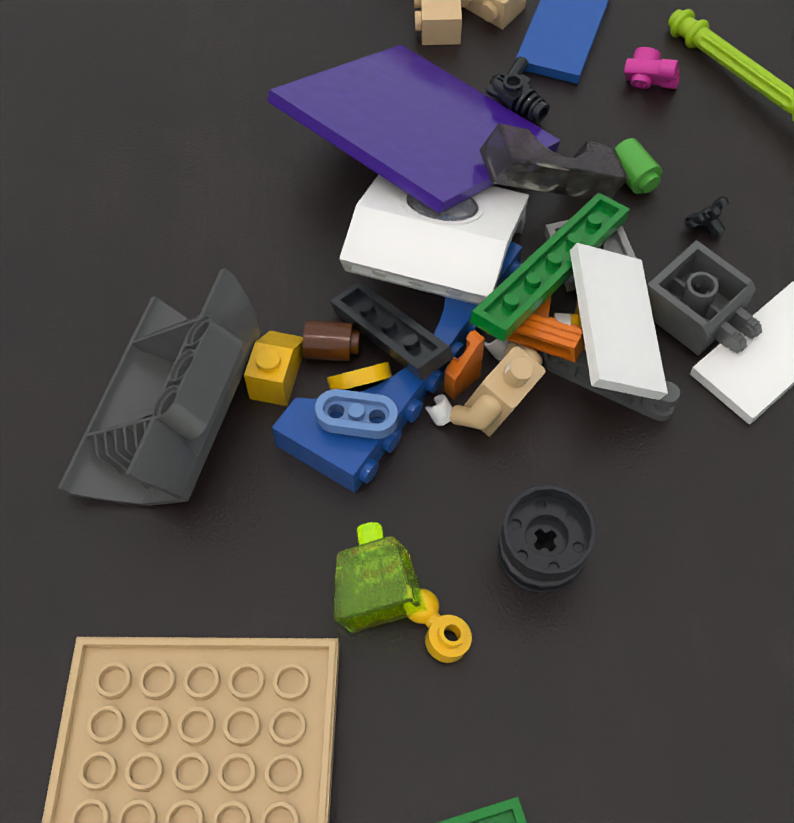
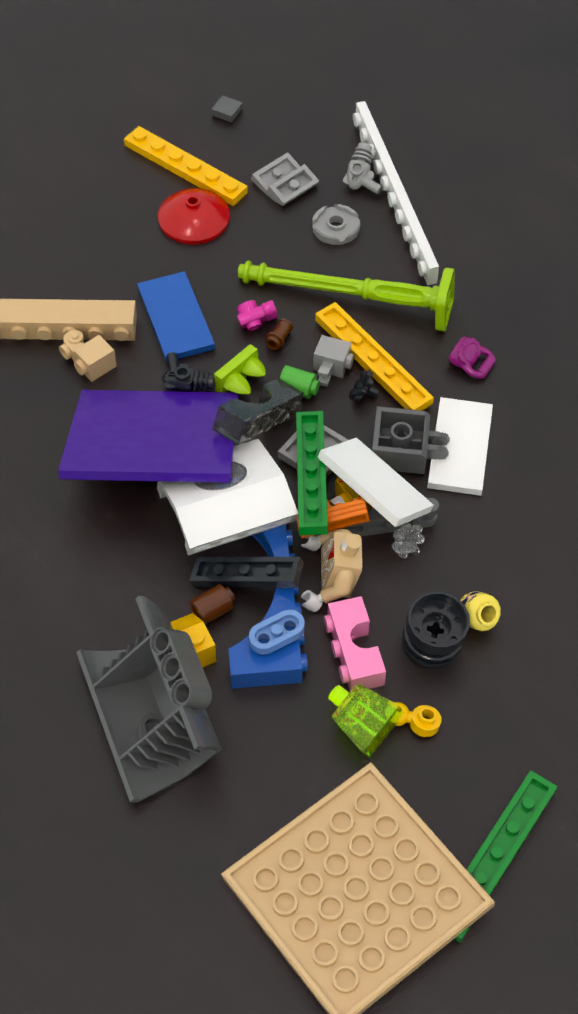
camera: 40 degrees left, 5 degrees down
(360, 376) = (252, 612): yellow piece -> none
(454, 461) = (360, 666): none -> bright pink arch
(467, 368) = (308, 559): orange tile -> none
(573, 115) = (234, 373): none -> lime tile
(609, 415) = (407, 539): none -> clear plant
(621, 556) = (483, 610): none -> light yellow head
(653, 107) = (276, 338): none -> reddish brown pin
(696, 162) = (332, 358): none -> light grey brick
(749, 194) = (374, 358): none -> yellow plate

